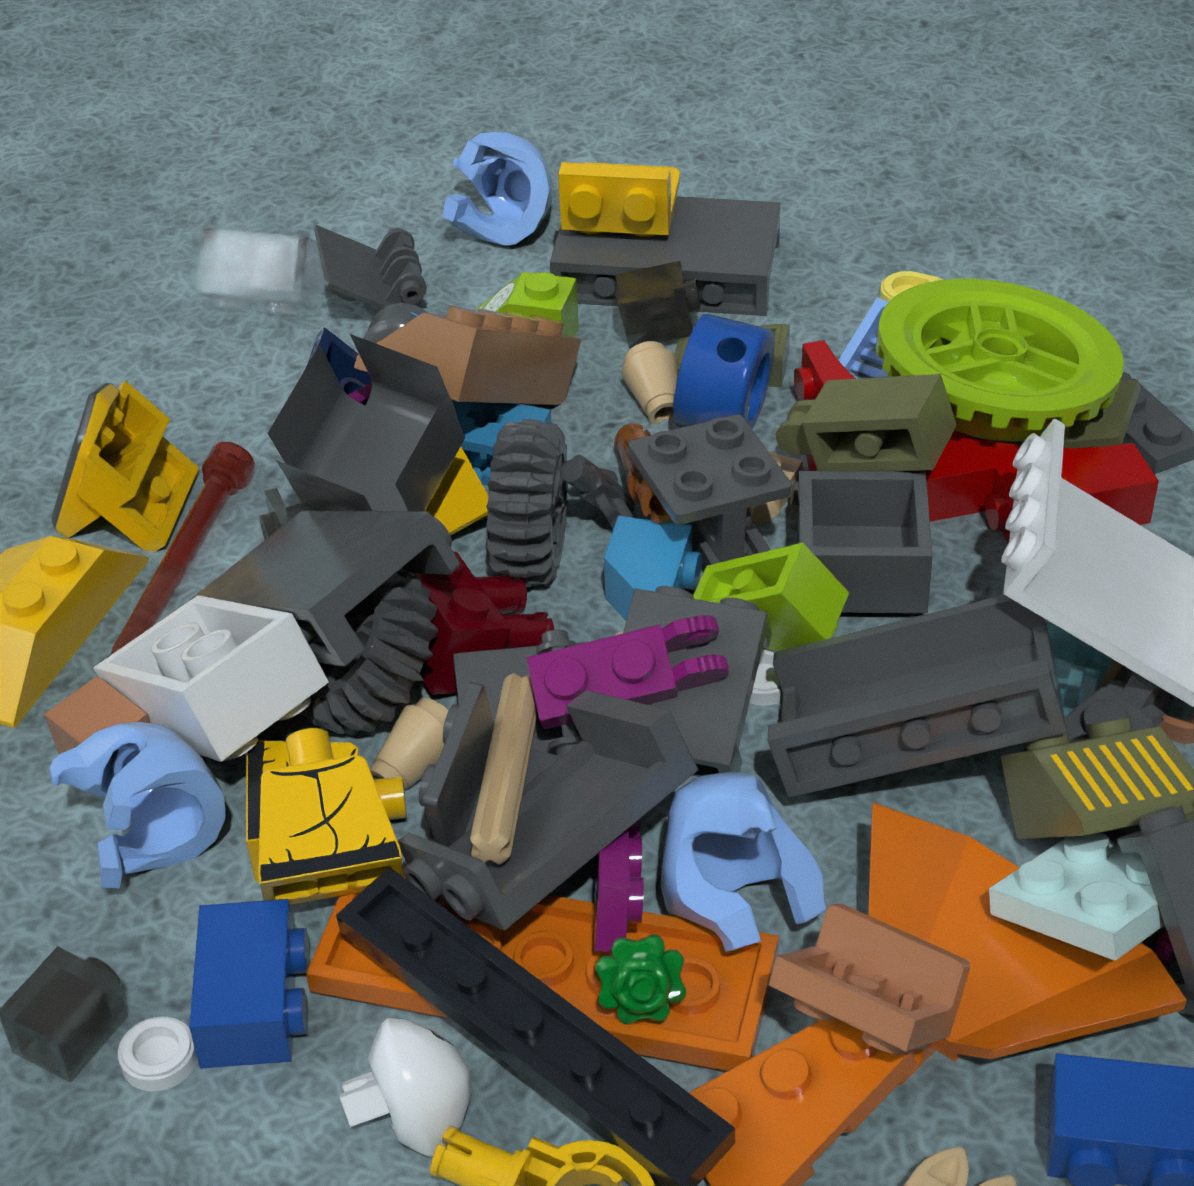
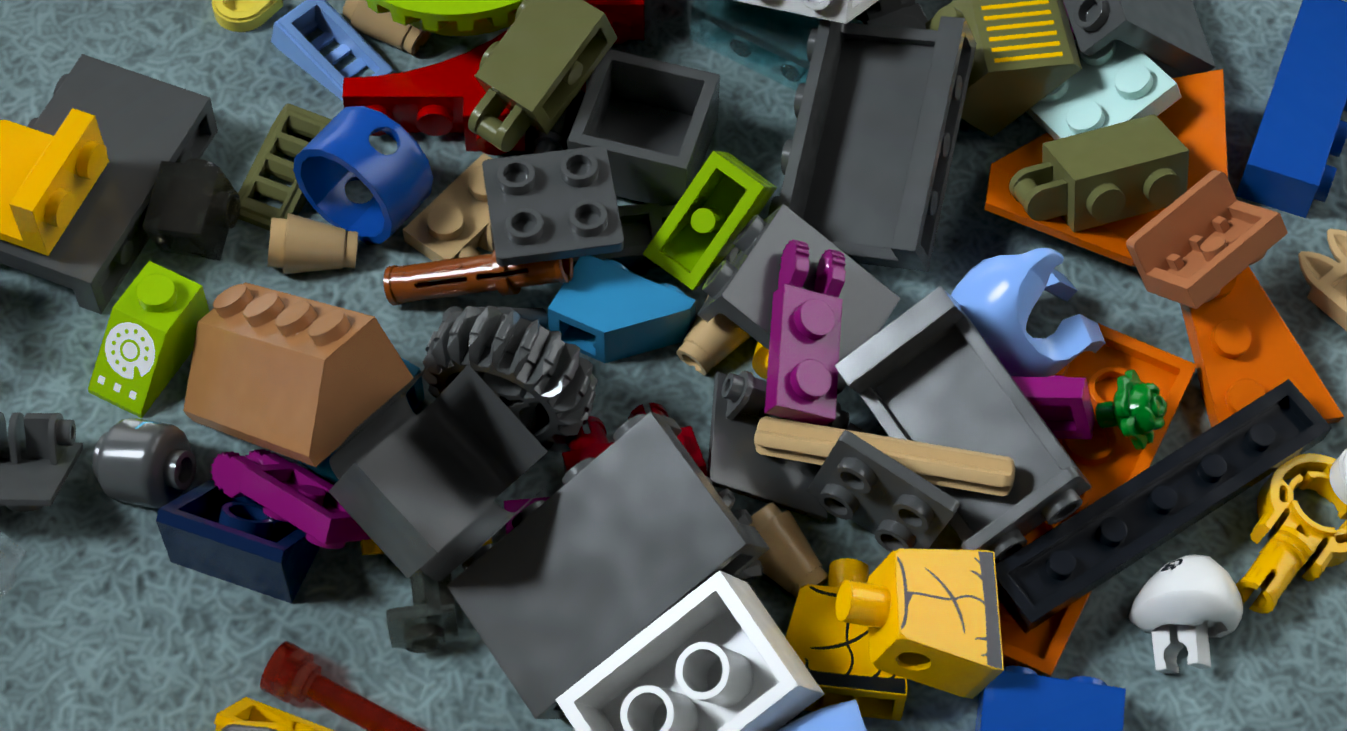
camera: 80 degrees left, 15 degrees up
(967, 904) = (1105, 174): none -> olive brick

